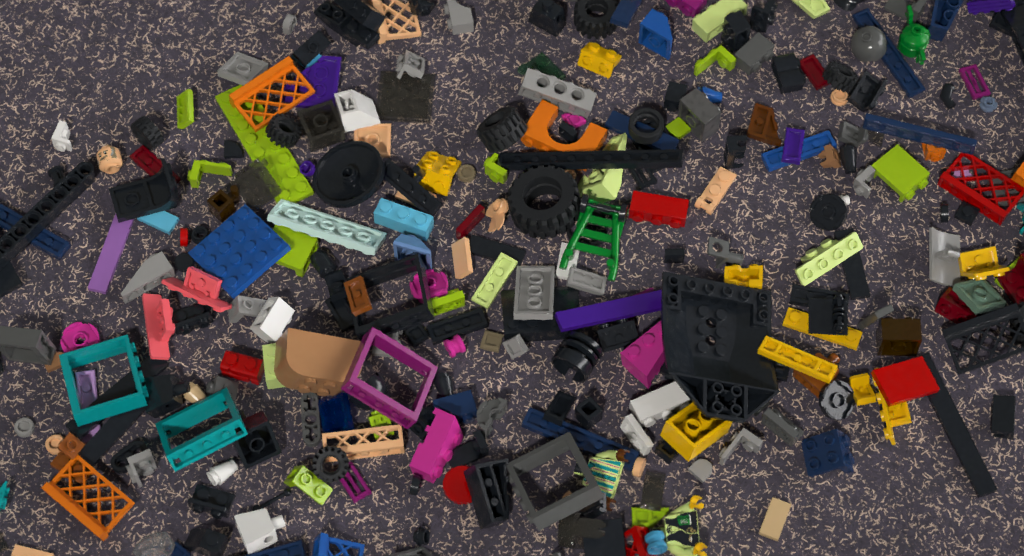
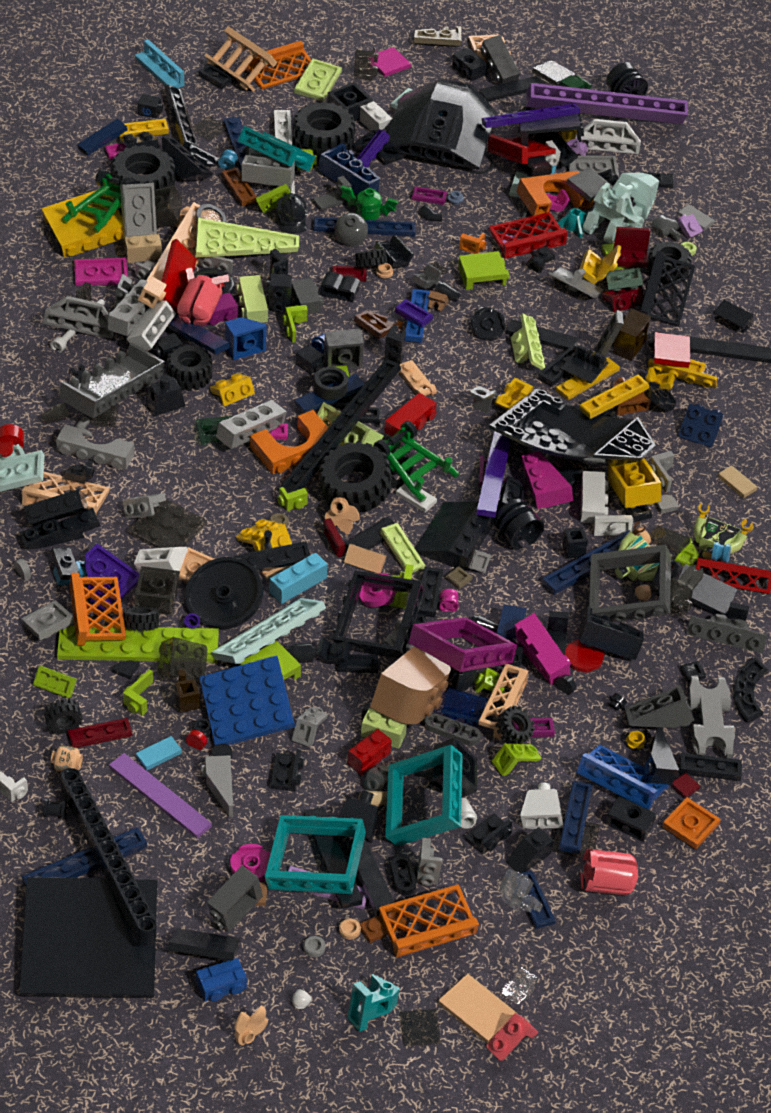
camera: 65 degrees left, 15 degrees down
(70, 445) = (366, 908): dark orange bracket -> none
(145, 195) = (135, 738): black bracket -> none
(158, 325) = (280, 790): coral bracket -> none
(200, 287) = (264, 744): coral bracket -> none
(272, 319) = (336, 709): white brick -> none
(286, 492) = (514, 777): black hinge -> none
(357, 296) = (363, 631): dark orange plate -> none
(409, 245) = (335, 584): medium blue slope -> none
(490, 411) = (535, 604): dark grey cylinder -> none
(501, 129) = (263, 470): black tyre -> none
(534, 293) = (440, 522): light grey plate -> none
(559, 408) = (556, 560): black tile -> none
(568, 132) = (293, 438): black plate -> none
(586, 281) = (445, 492): light grey plate -> none
(674, 256) = (461, 428): black tile -> none
(781, 426) = (666, 436): dark grey bracket -> none
(862, 178) = (475, 295): light grey bracket -> none
(919, 134) = (463, 236): dark blue tile -> none

